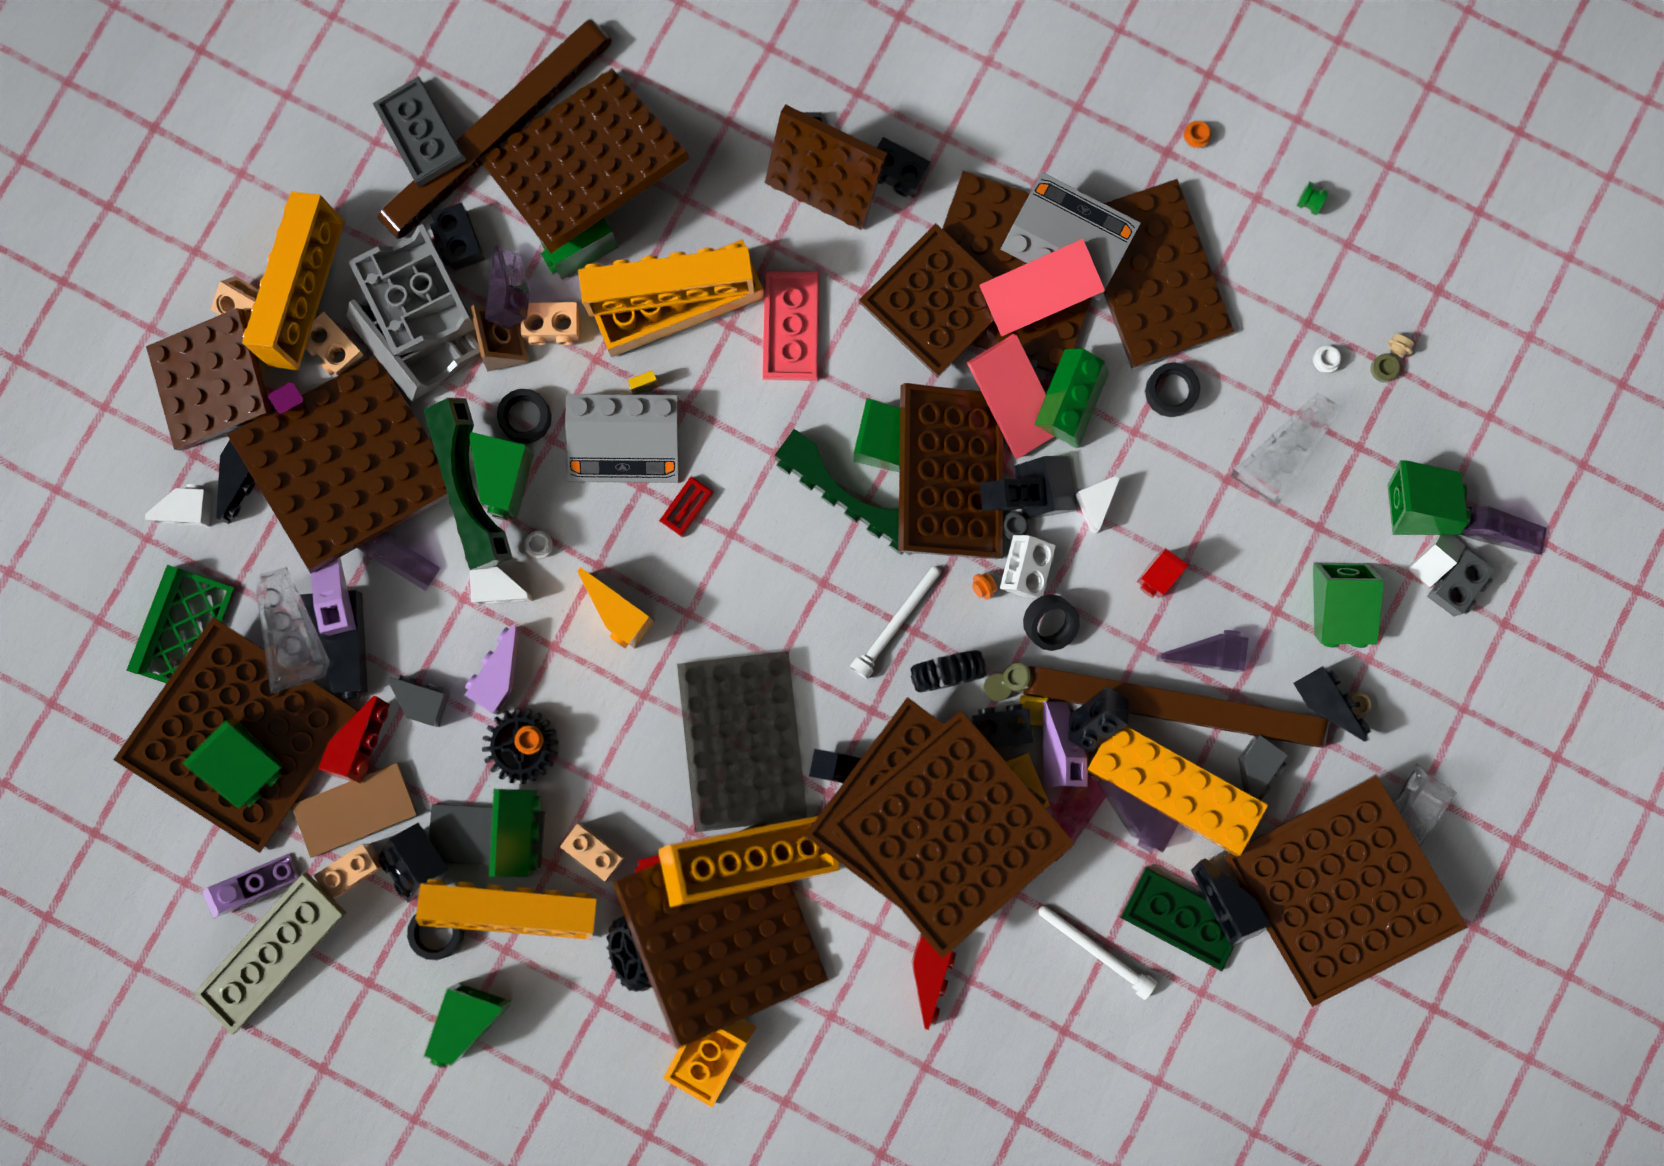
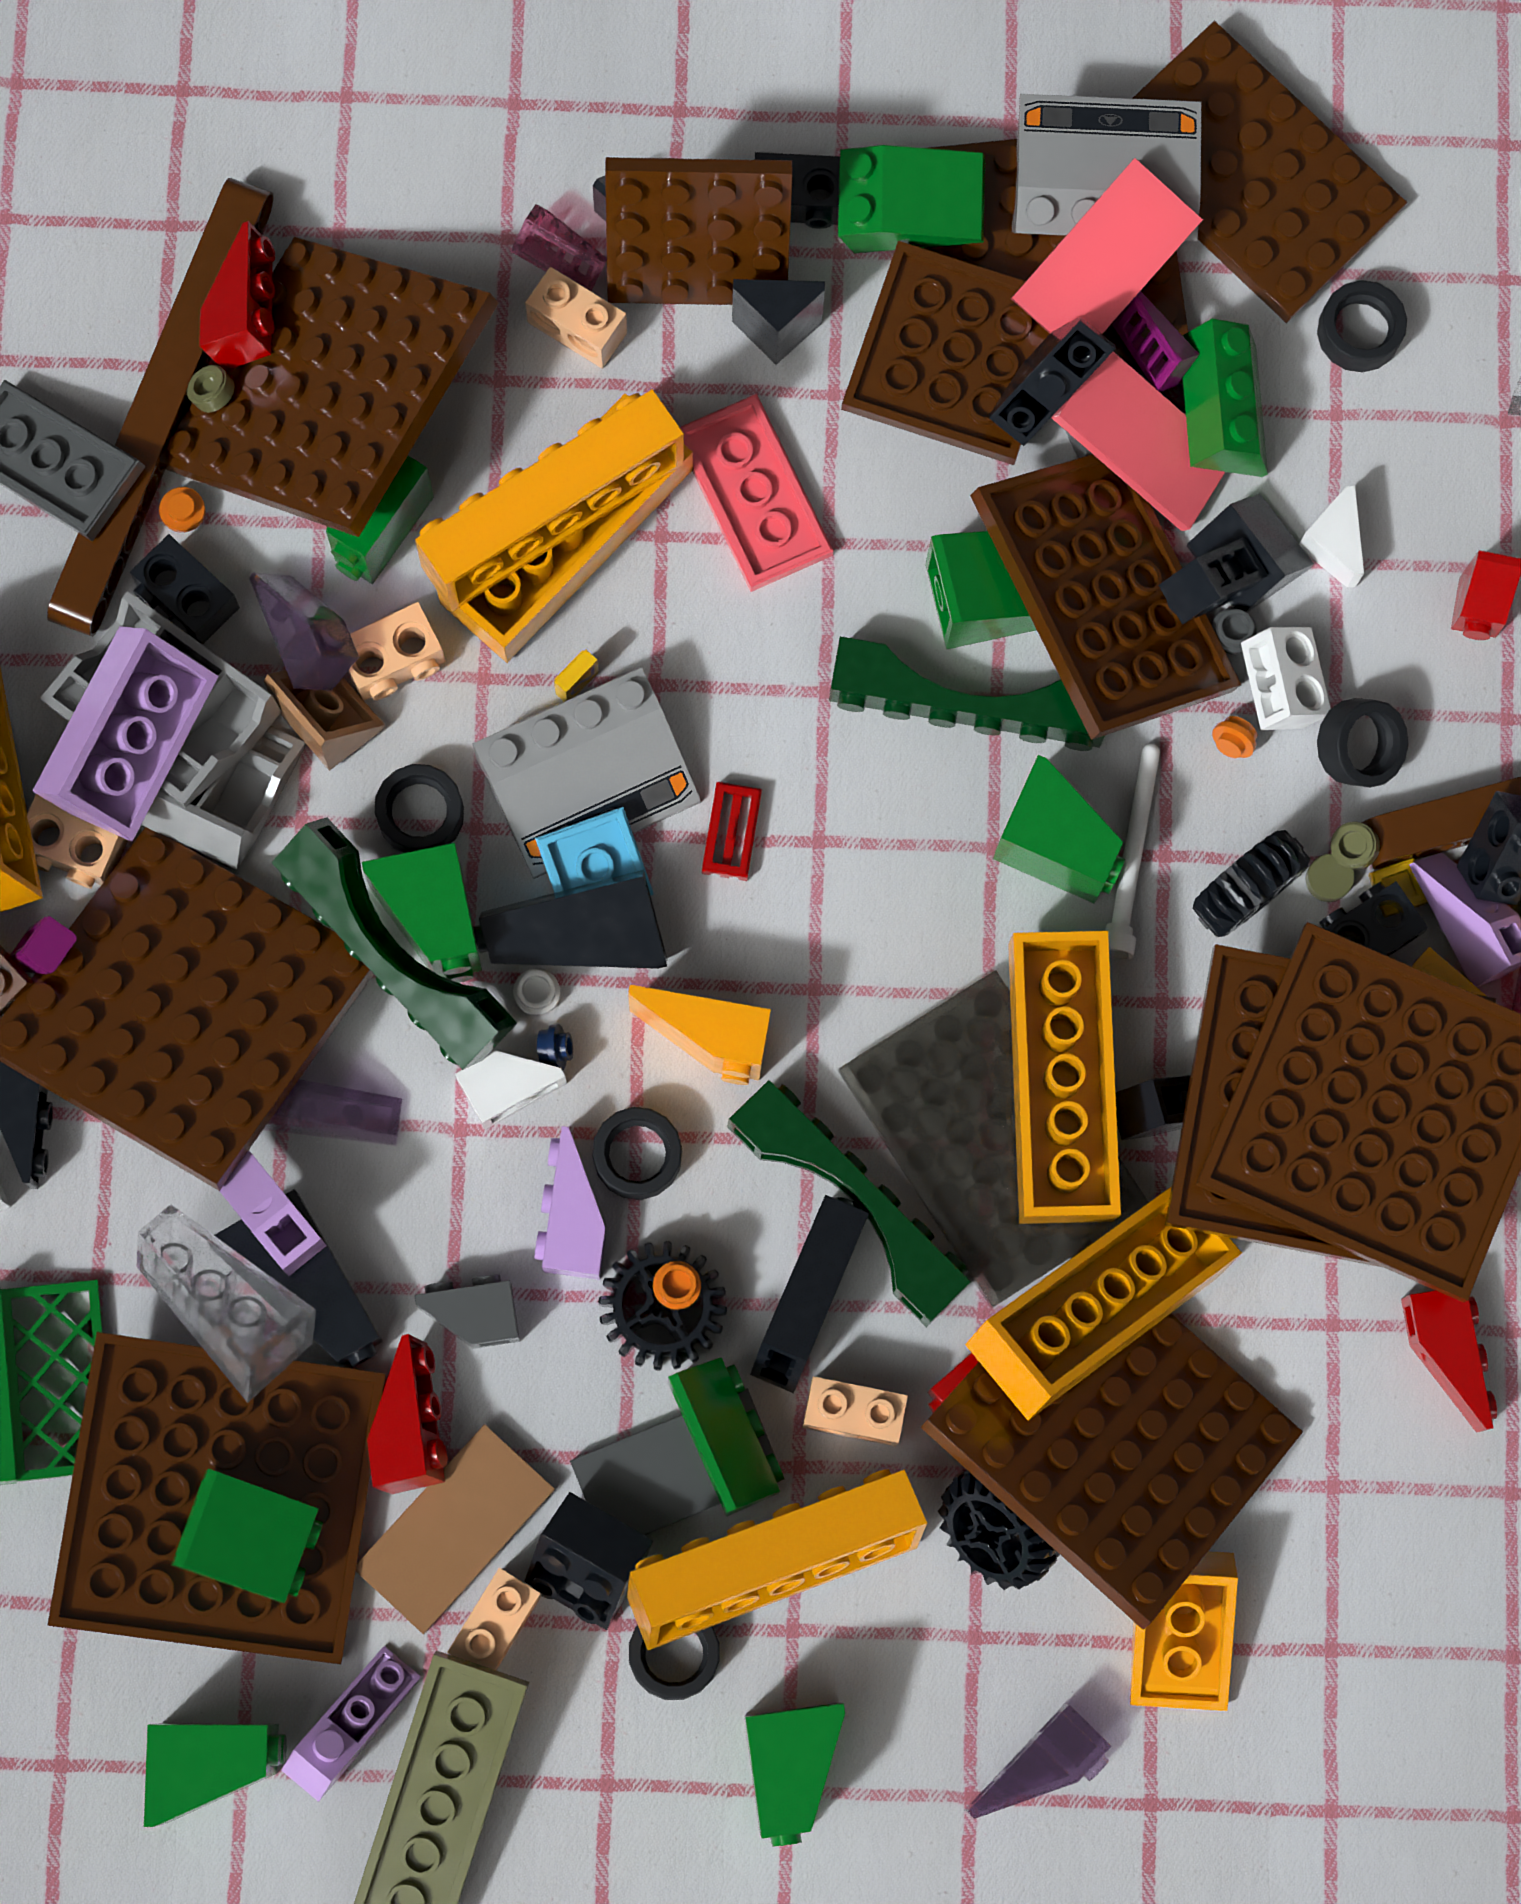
camera: 30 degrees left, 5 degrees down
(161, 870) = (204, 1763): none -> green slope
(380, 302) = (126, 732): none -> lavender slope
(479, 191) = (182, 509): none -> orange plate
(522, 132) = (210, 388): none -> olive tile
(530, 645) = (645, 1118): none -> black tyre
(532, 579) = (554, 1046): none -> dark blue plate
(560, 92) = (238, 308): none -> red slope
(578, 521) = (582, 926): none -> black slope
(601, 776) = (809, 1293): none -> black slope
(602, 491) = (590, 851): none -> medium azure plate
(603, 1088) = (1049, 1761): none -> clear purple slope
(628, 682) = (781, 1133): none -> dark green arch
(741, 183) = (576, 317): none -> light nougat brick
(746, 134) = (554, 231): none -> clear pink slope
(791, 728) = (1064, 1077): none -> light orange brick
(851, 233) = (777, 313): none -> black slope
(856, 594) = (1060, 837): none -> green slope
(954, 201) = (910, 197): none -> green slope
(975, 341) = (1050, 378): none -> black slope
(1051, 358) = (1171, 343): none -> magenta slope

